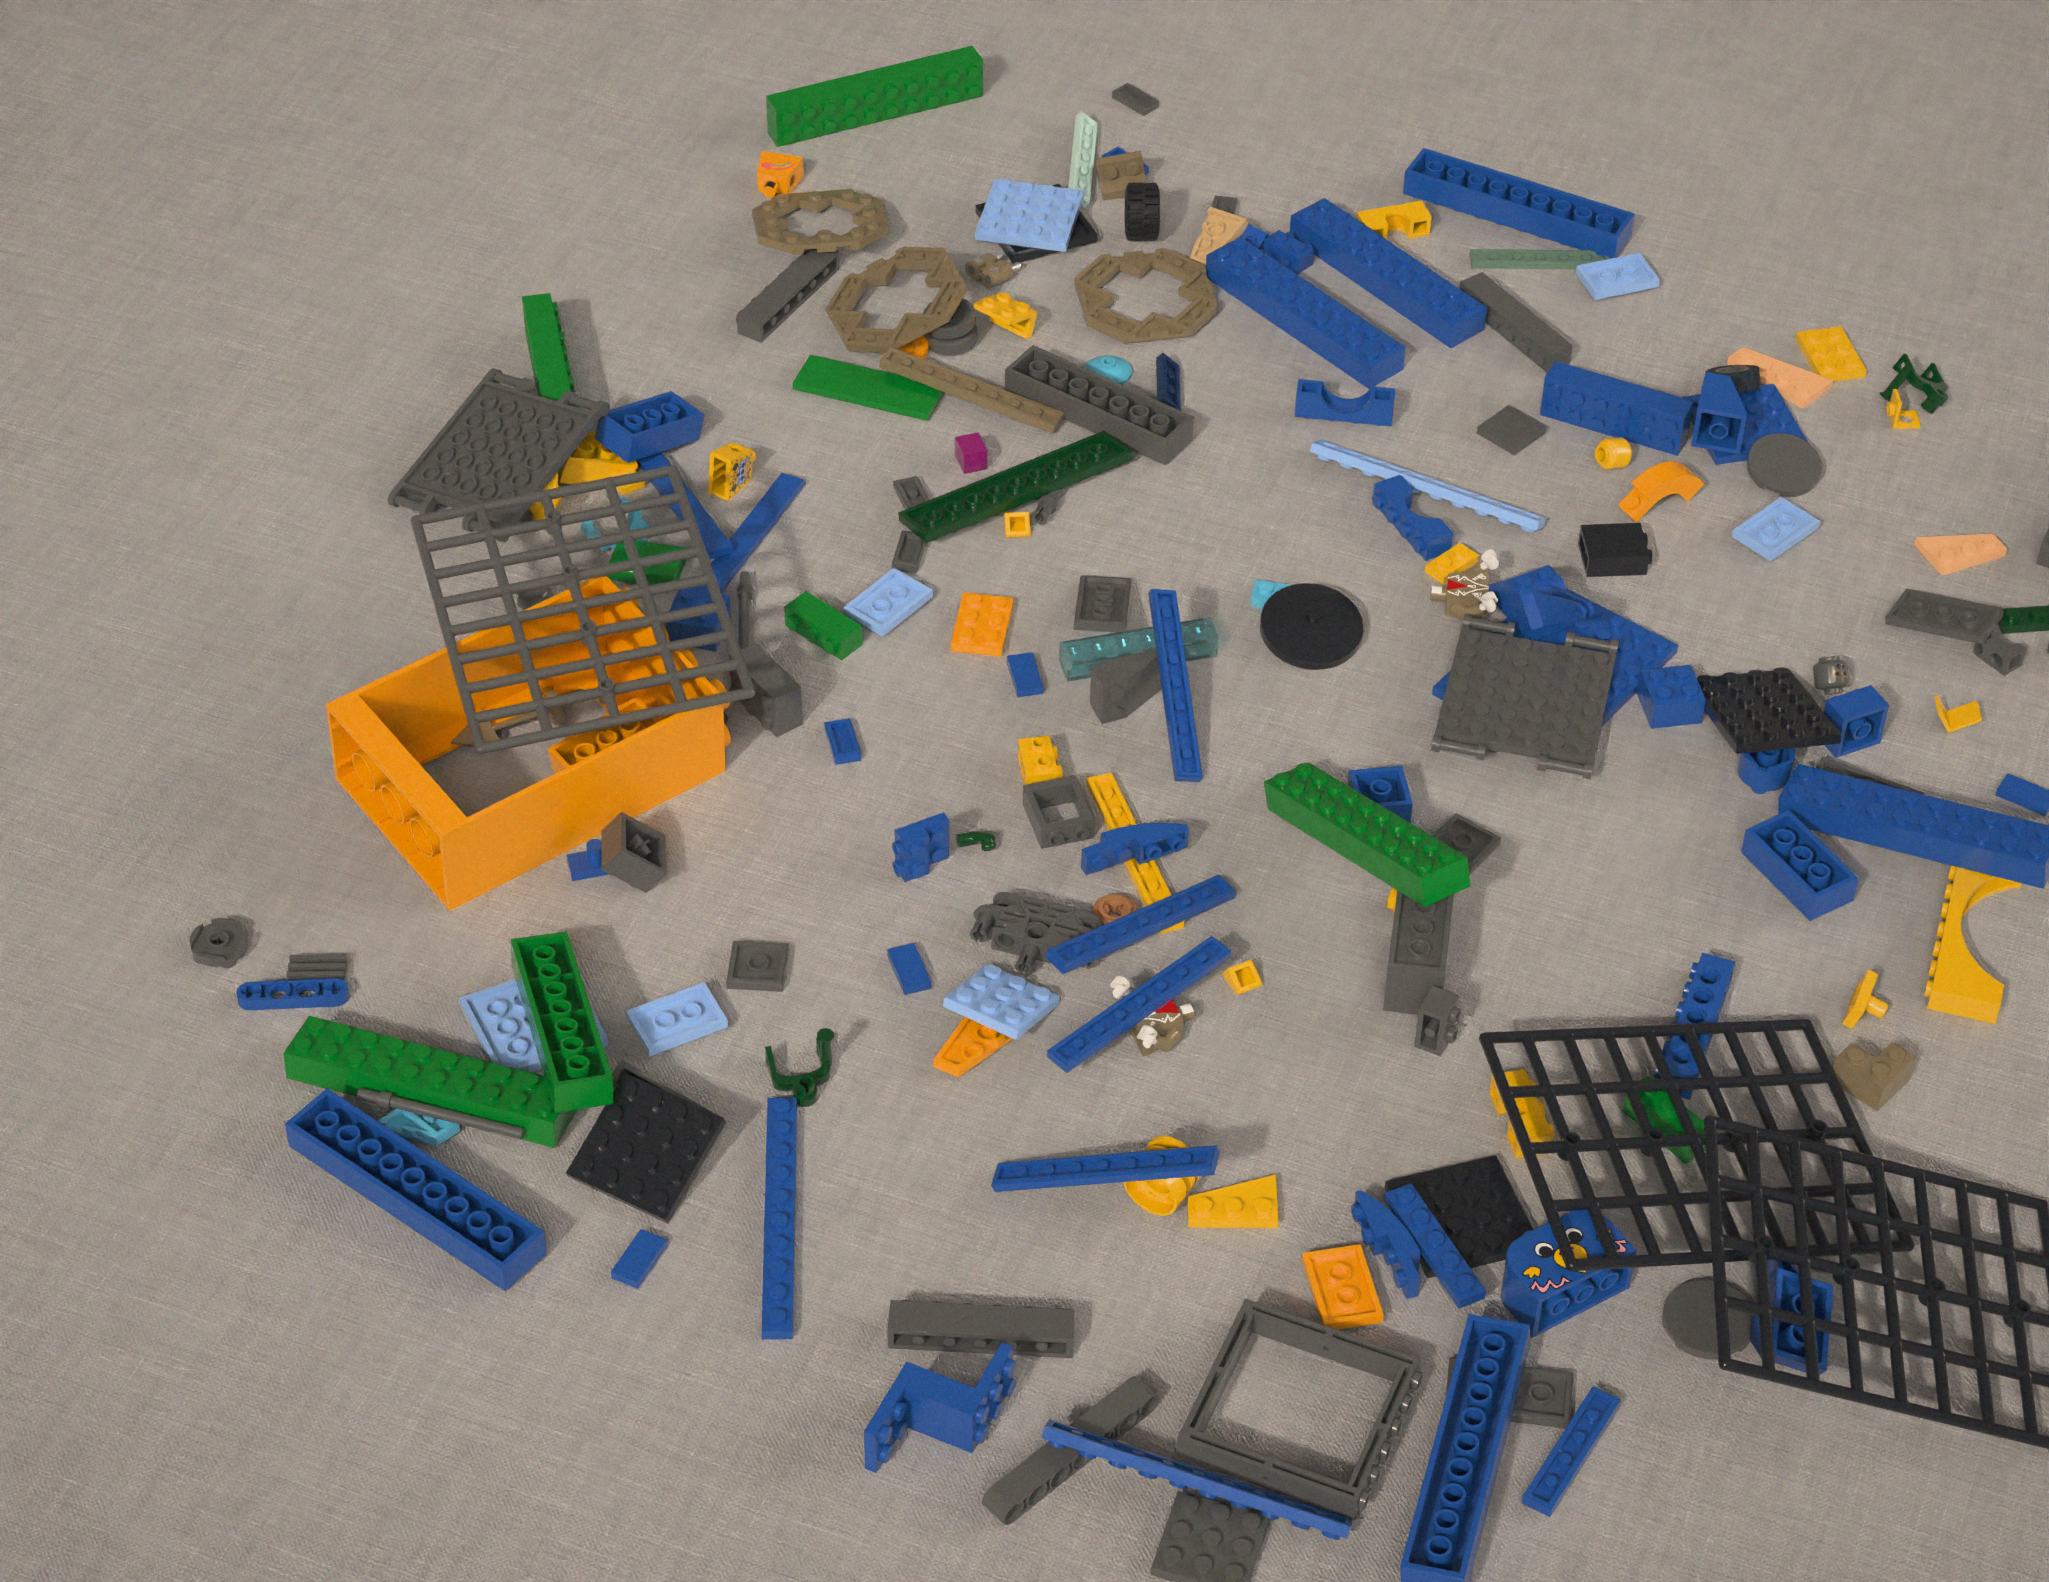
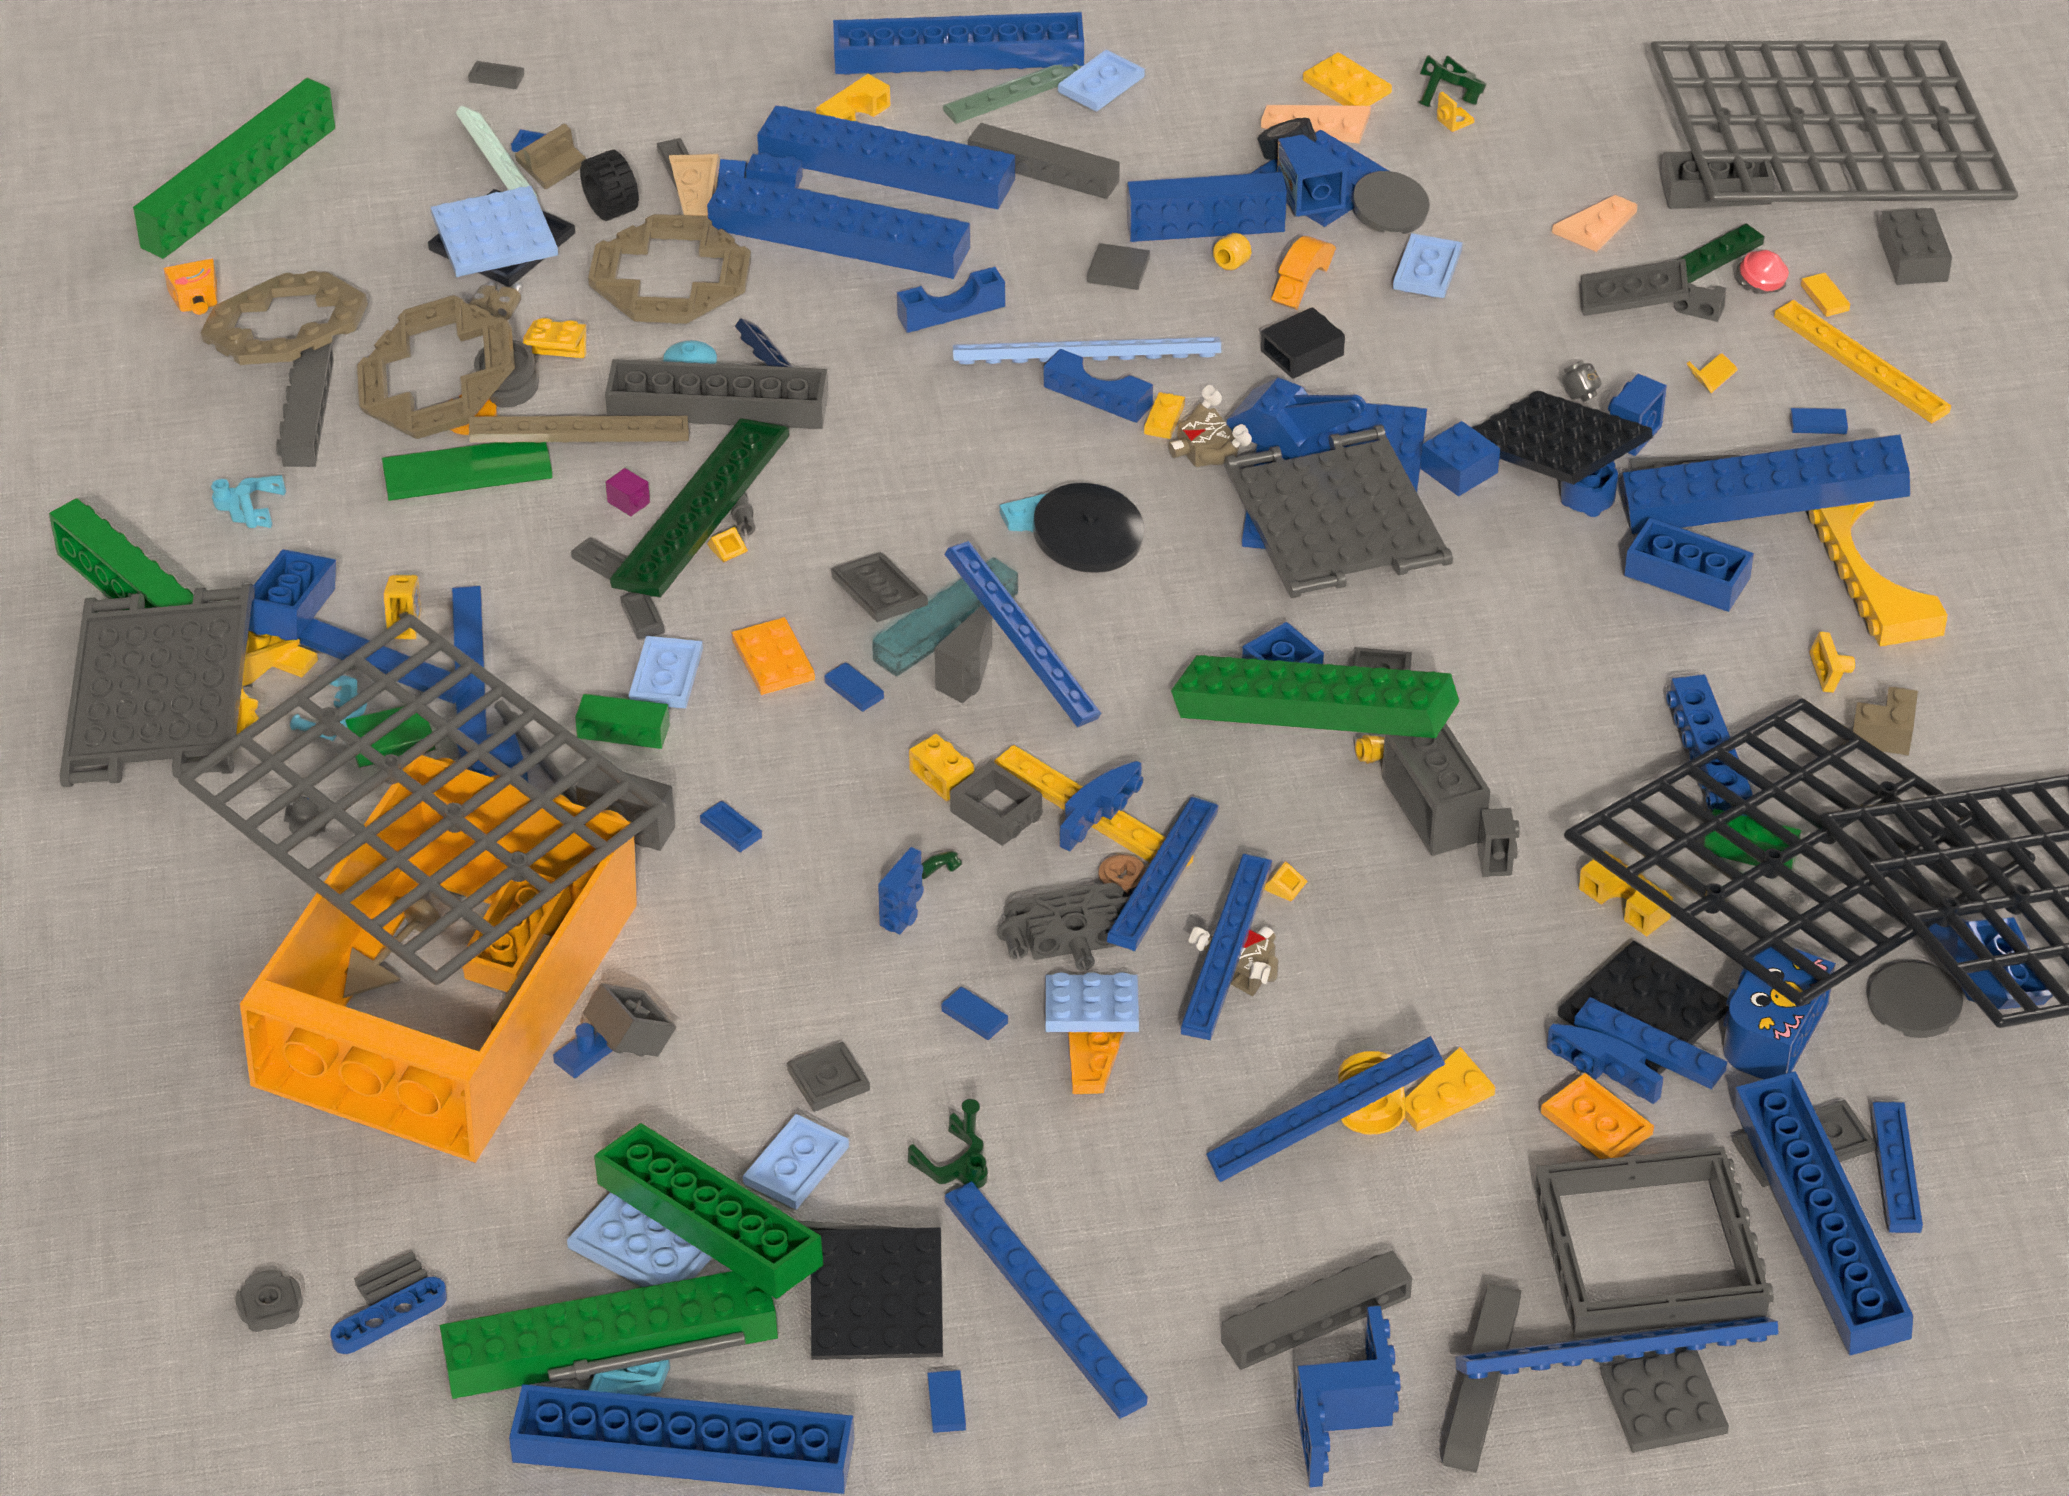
camera: 30 degrees left, 0 degrees up
(677, 342) = (238, 499): none -> medium azure piece

